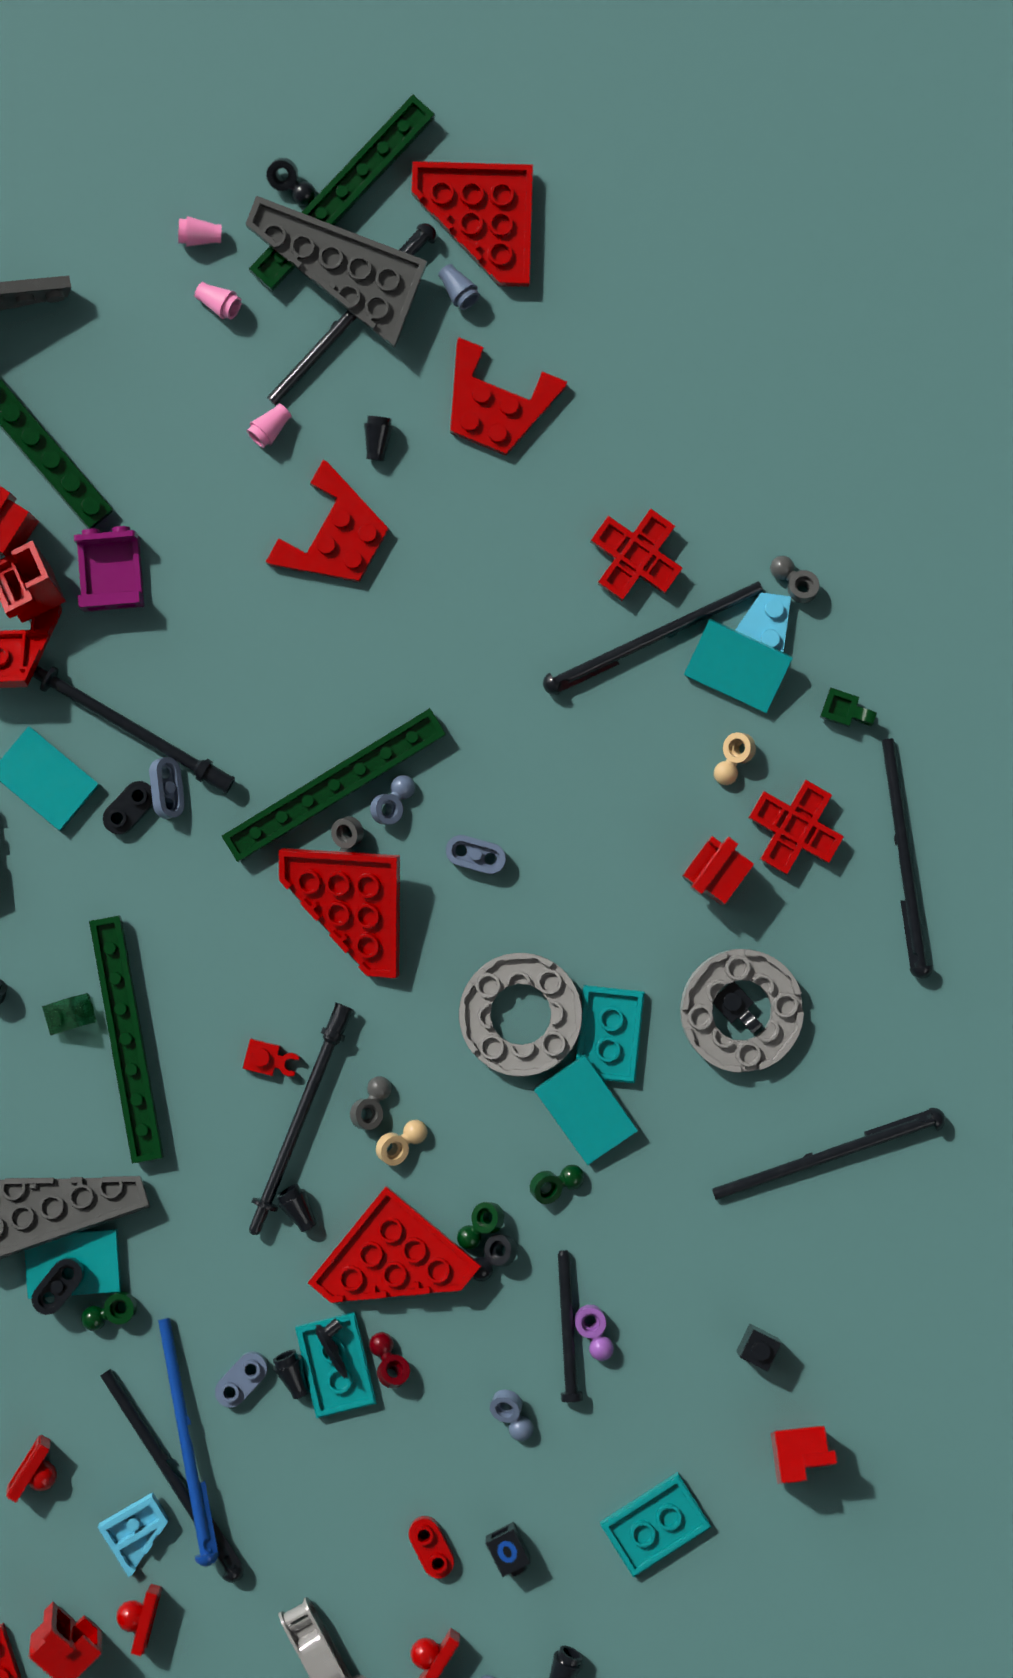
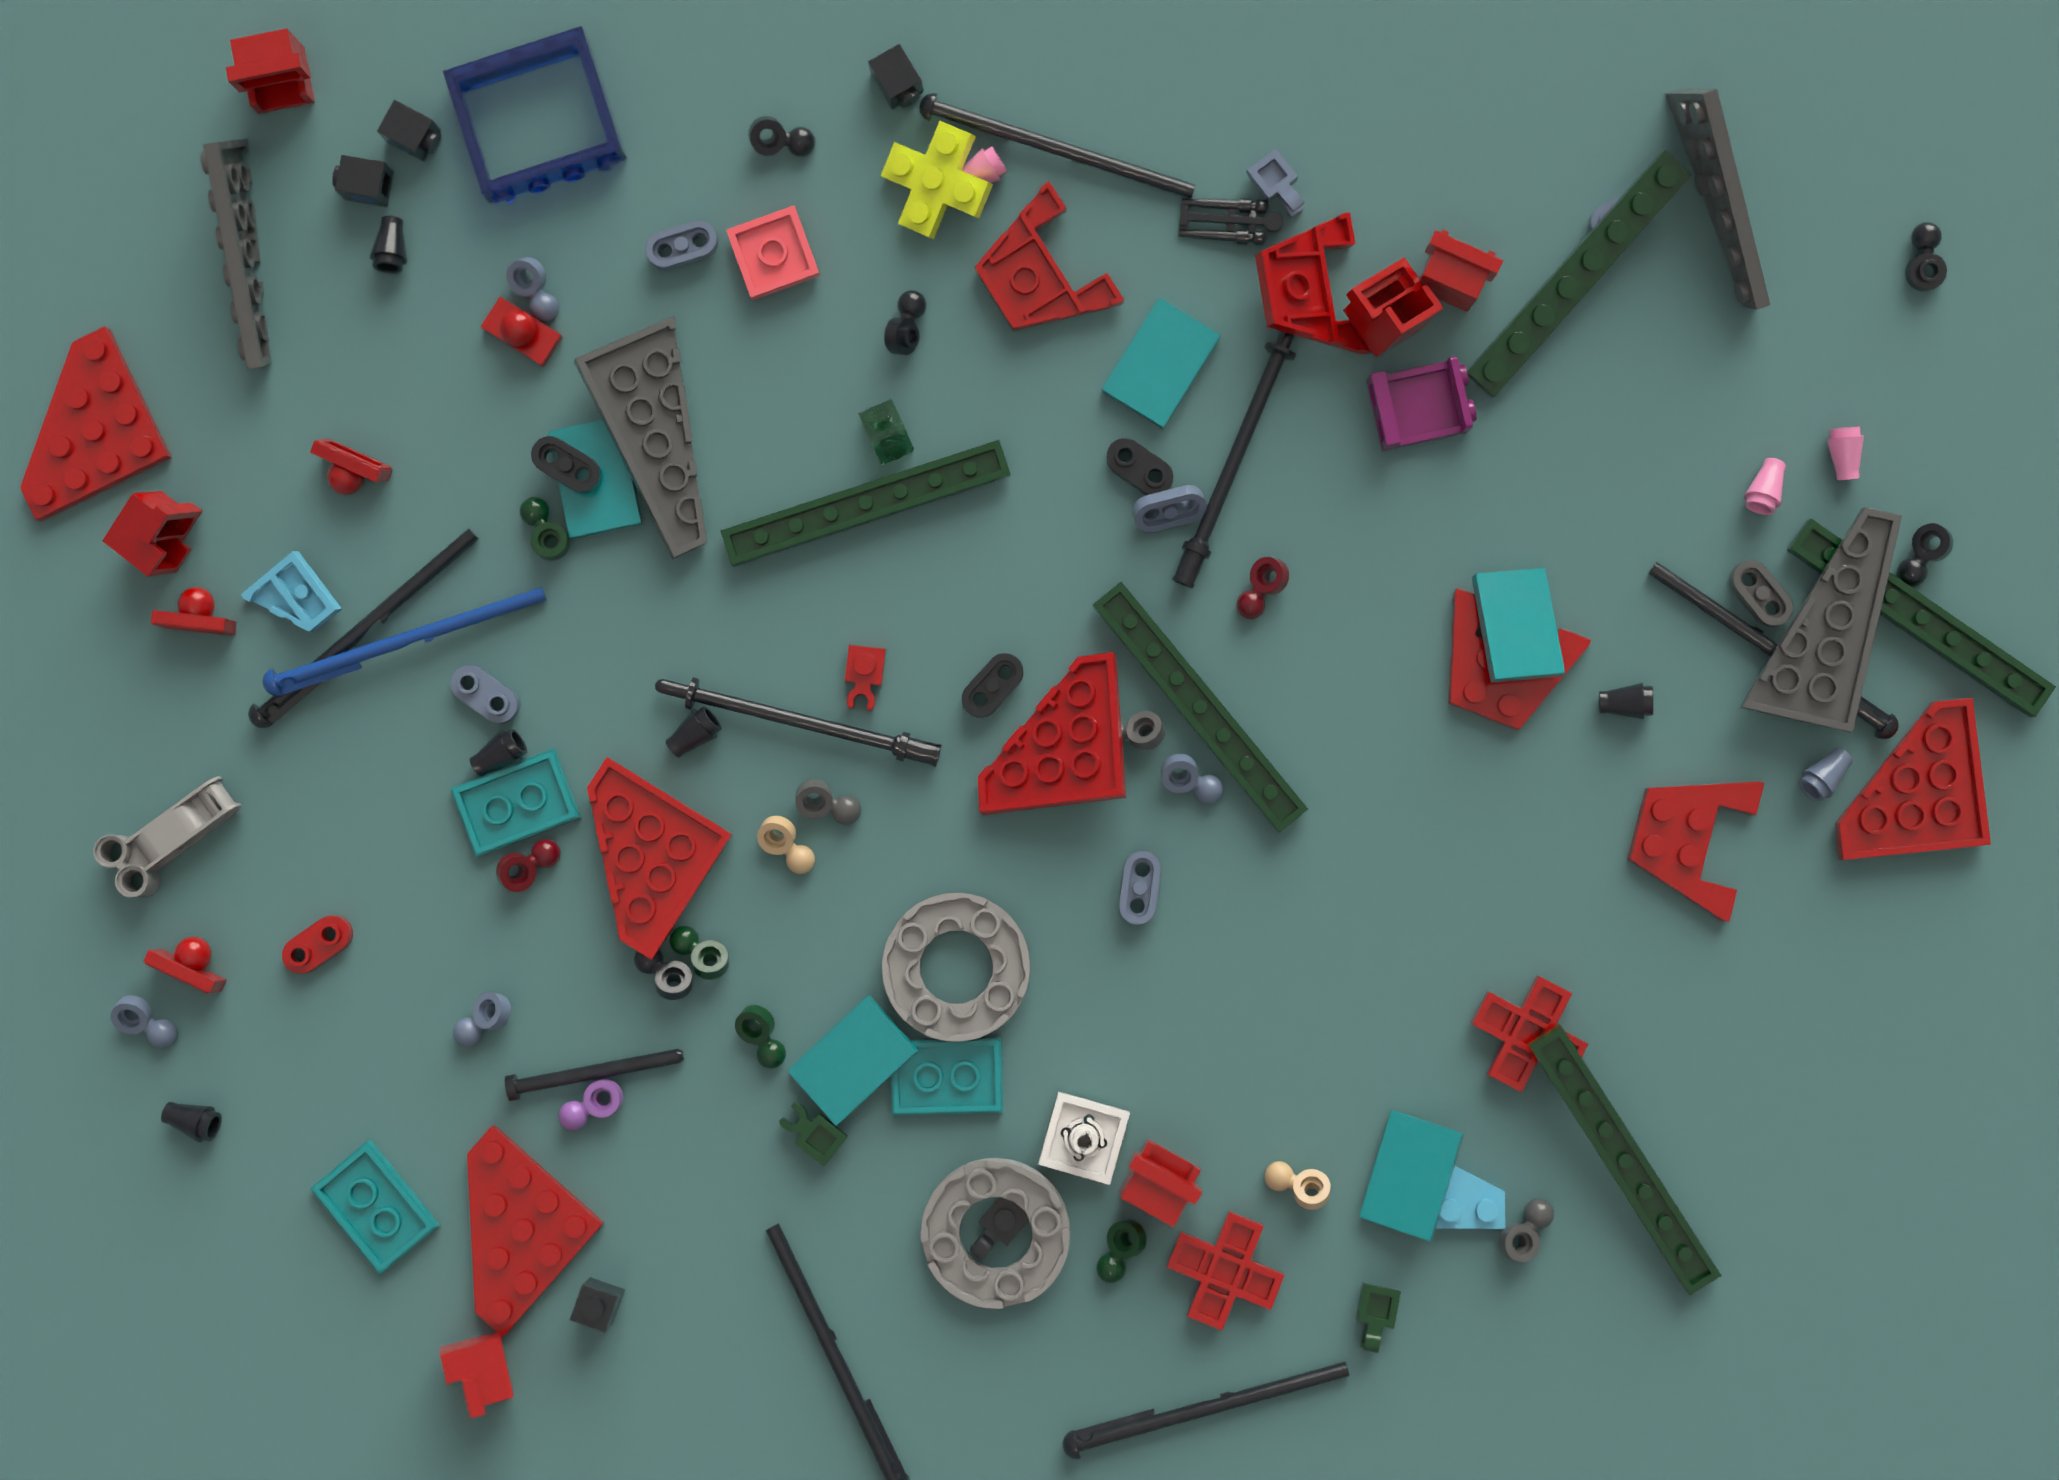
camera: 85 degrees right, 0 degrees up
(33, 142) = (1925, 239): none -> black plate
(254, 730) = (1252, 602): none -> dark red plate
(268, 426) = (1620, 567): bright pink cone -> none
(292, 953) = (991, 685): none -> black plate
(302, 516) = (1518, 625): none -> teal tile
(303, 316) = (1763, 590): none -> dark grey plate
(331, 1348) = (534, 794): black bar -> none
(508, 1550) = (323, 1036): black brick -> none
(608, 660) = (1396, 1017): black bar -> none
(644, 1146) = (818, 1137): none -> dark green plate
(682, 949) = (1059, 1151): none -> white plate
(688, 1404) = (520, 1228): none -> red plate
(746, 493) = (1624, 1159): none -> dark green plate
(781, 918) = (1111, 1265): none -> dark green plate

